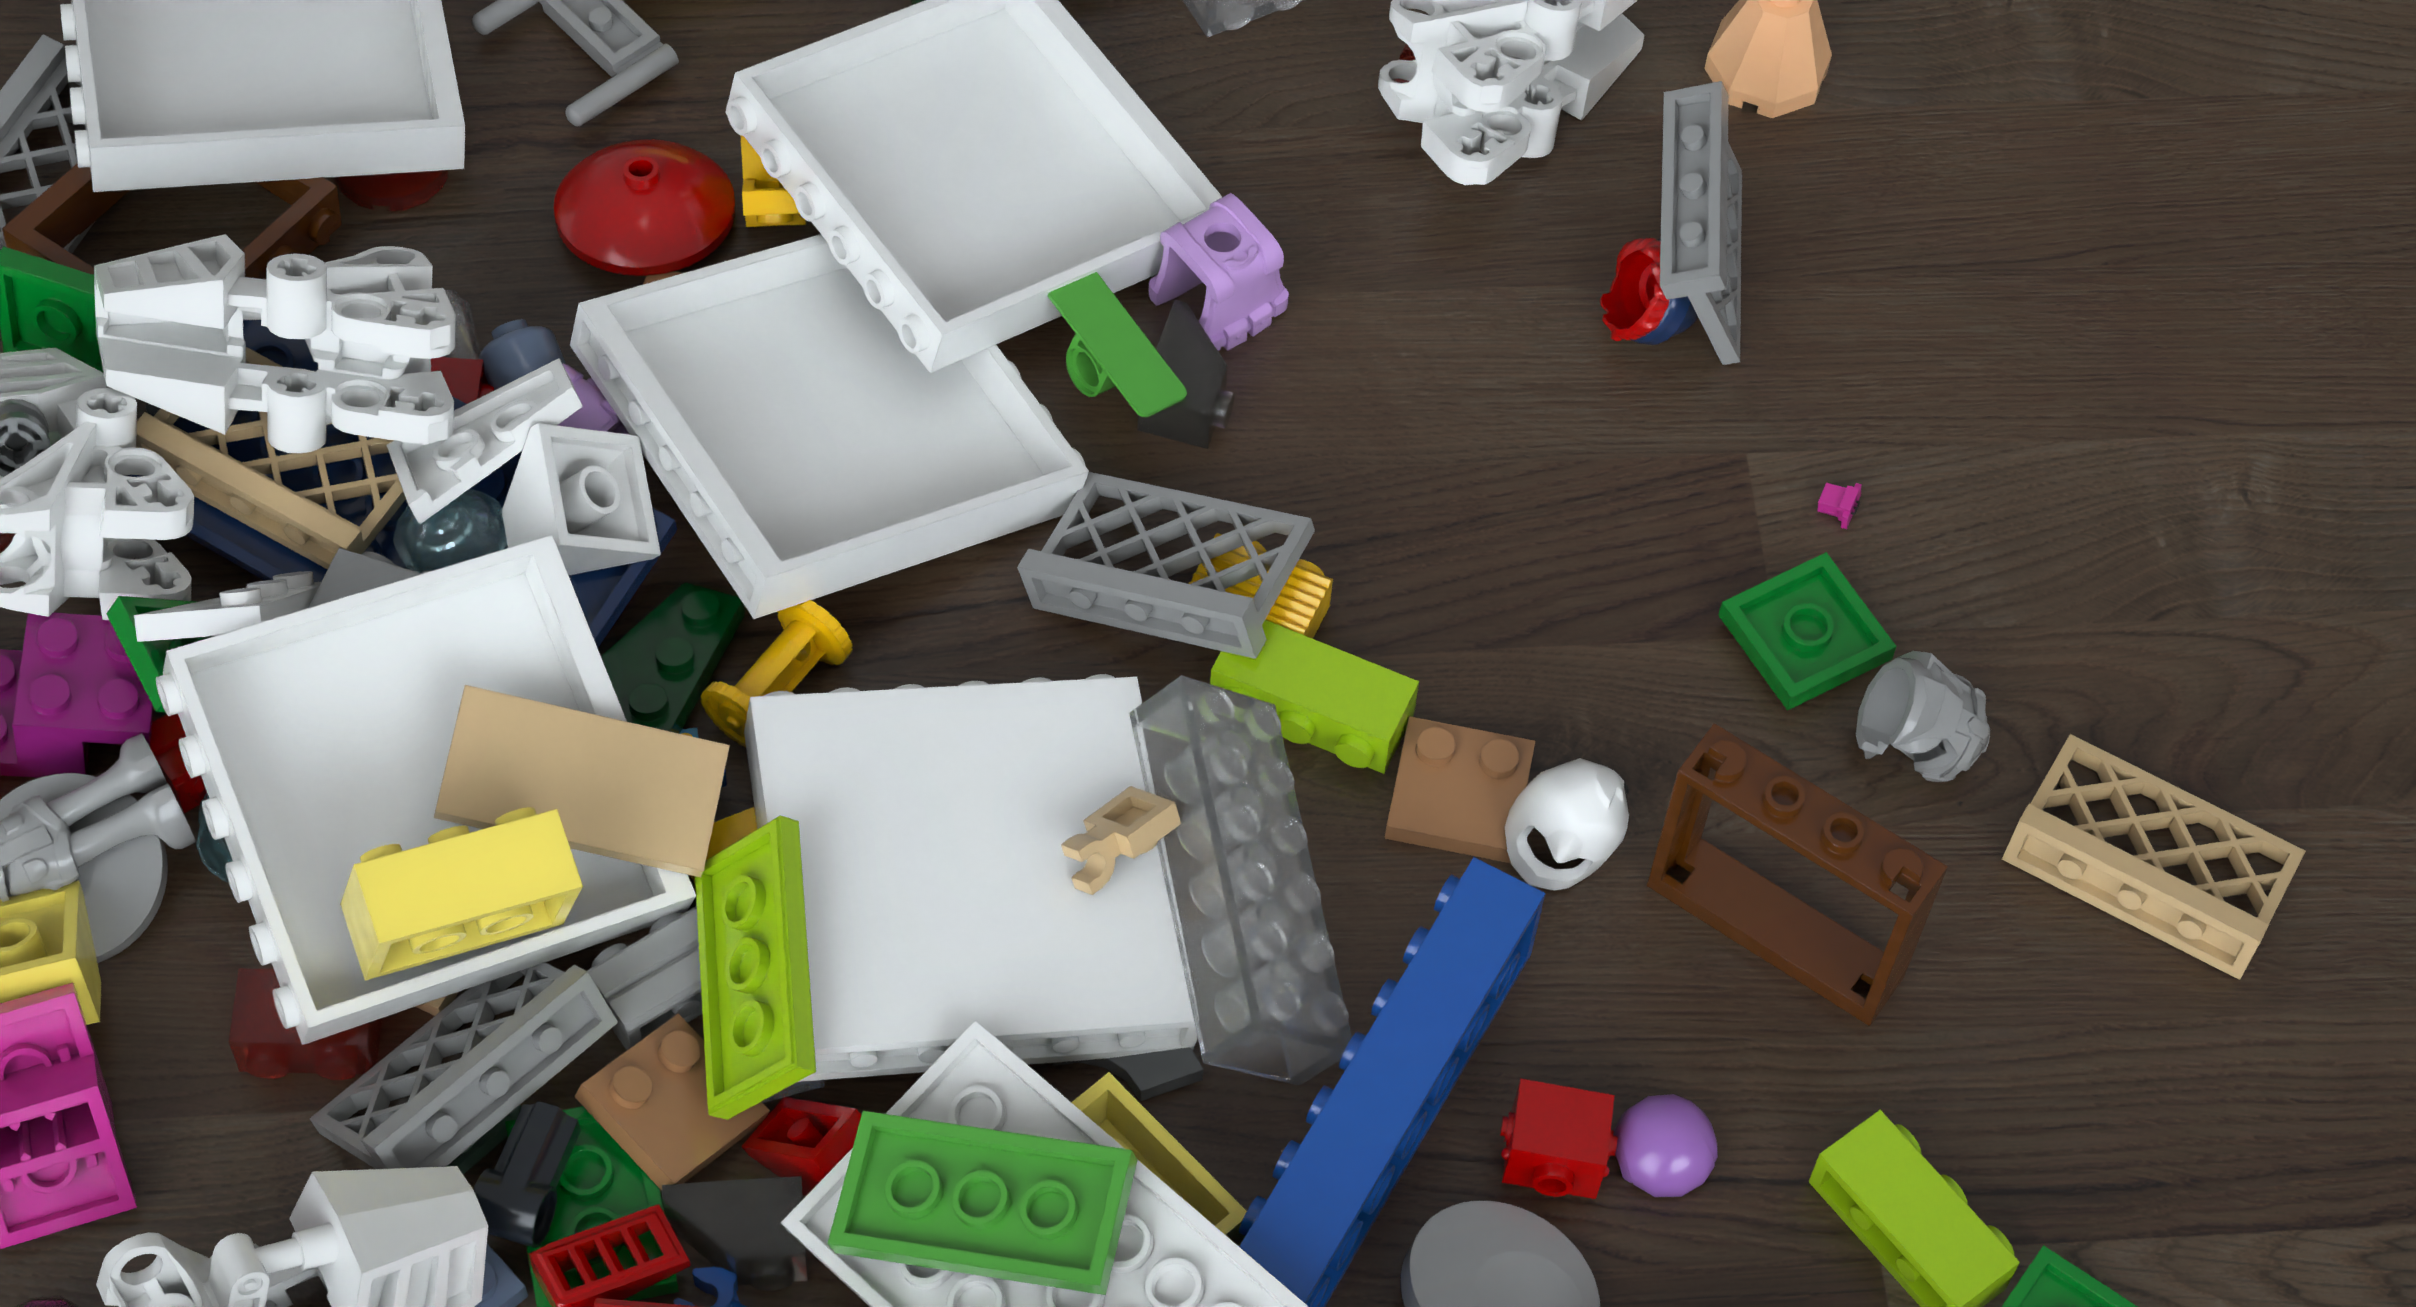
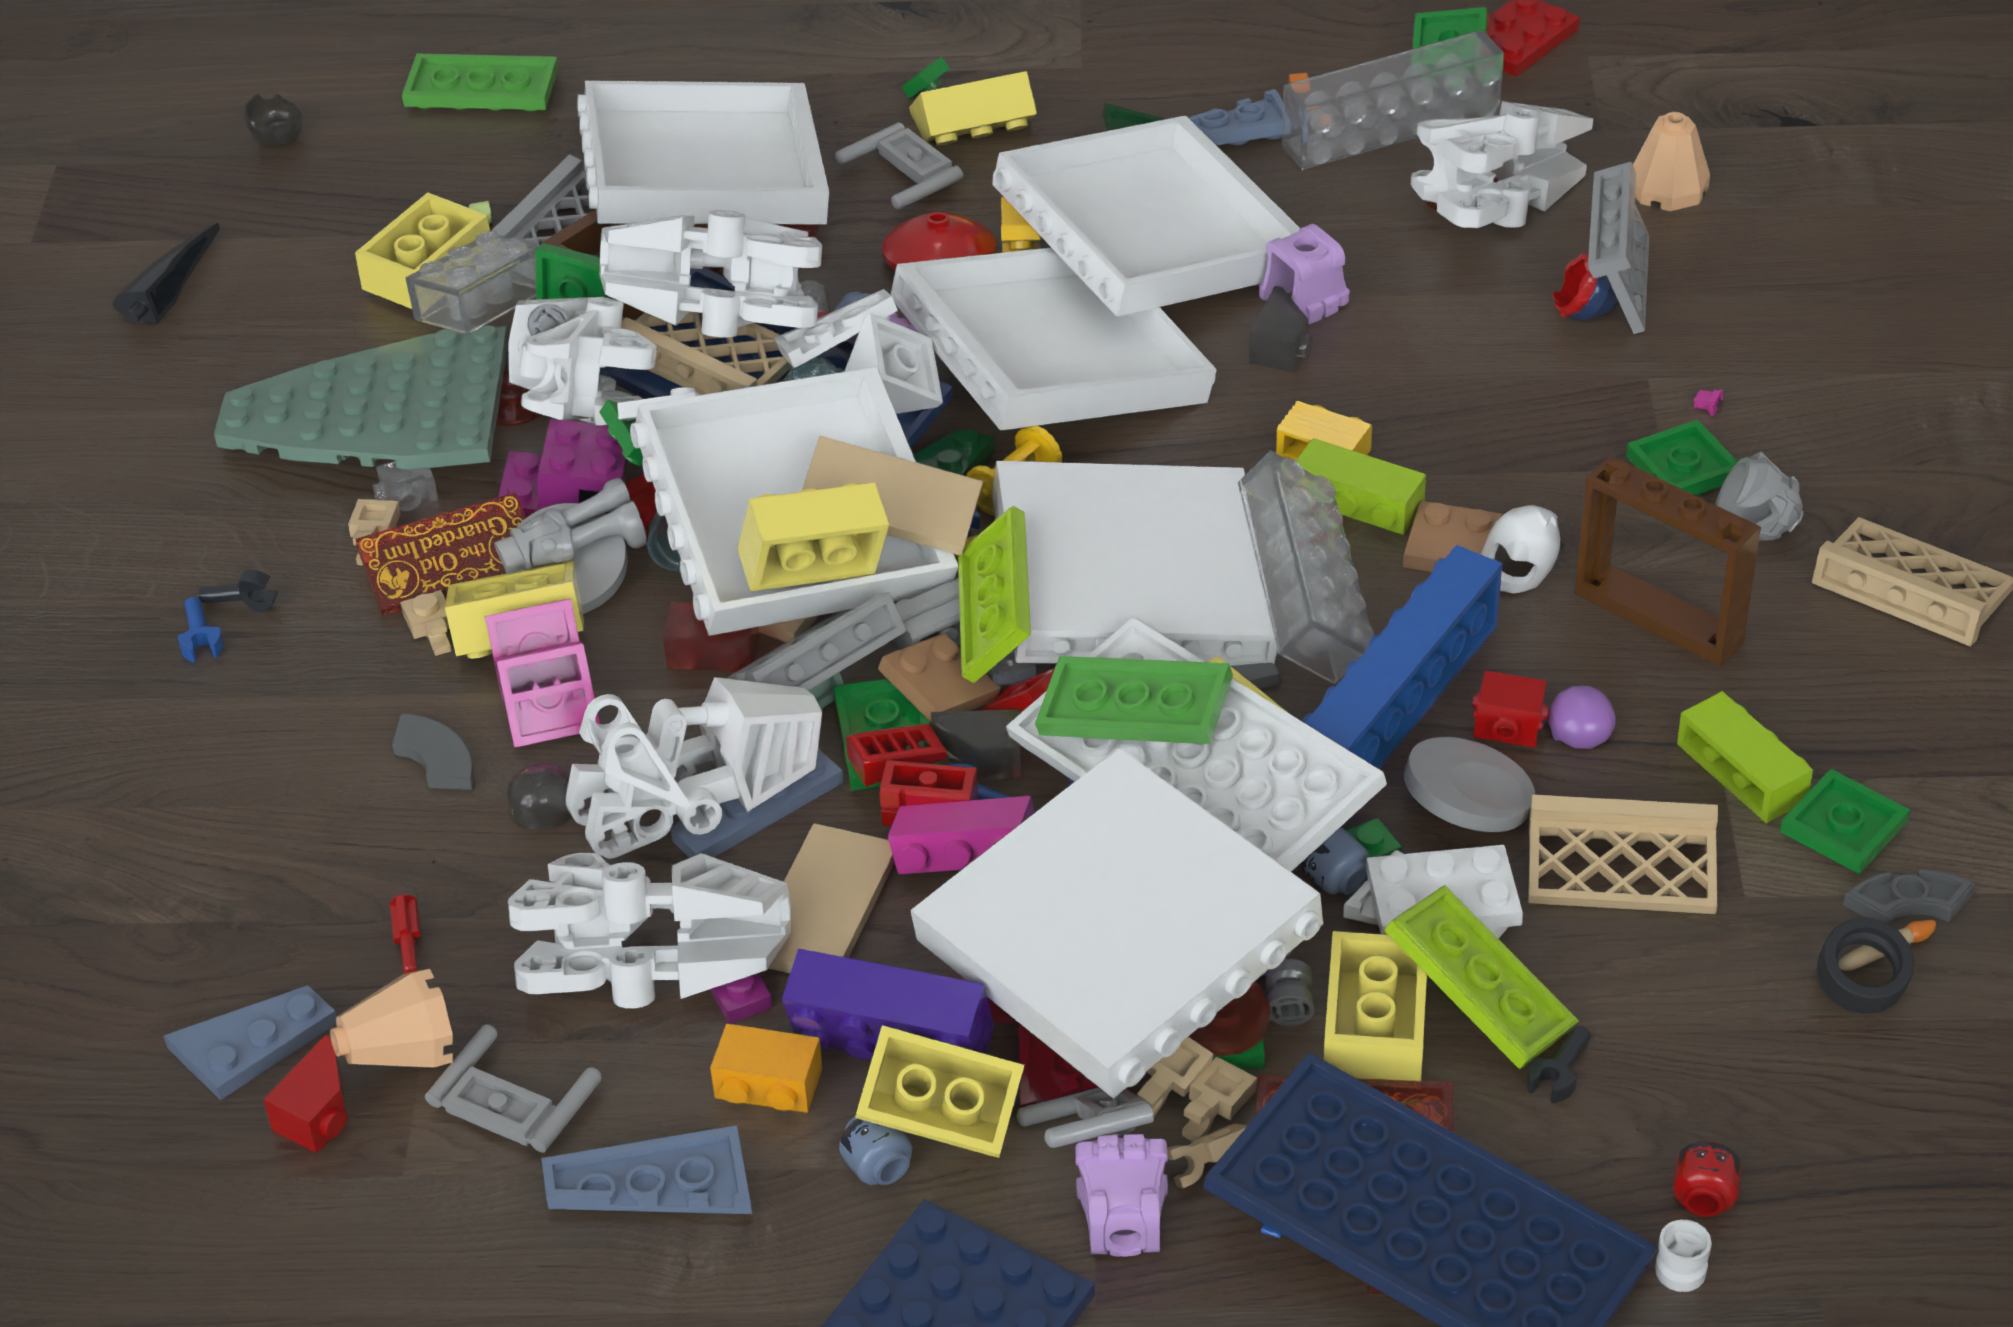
camera: 10 degrees right, 15 degrees down
(521, 1190) = (847, 702): black piece -> none
(1112, 349) = (1232, 307): bright green piece -> none
(1124, 826) = (1233, 531): tan plate -> none
(1147, 598) = (1278, 428): light grey fence -> none

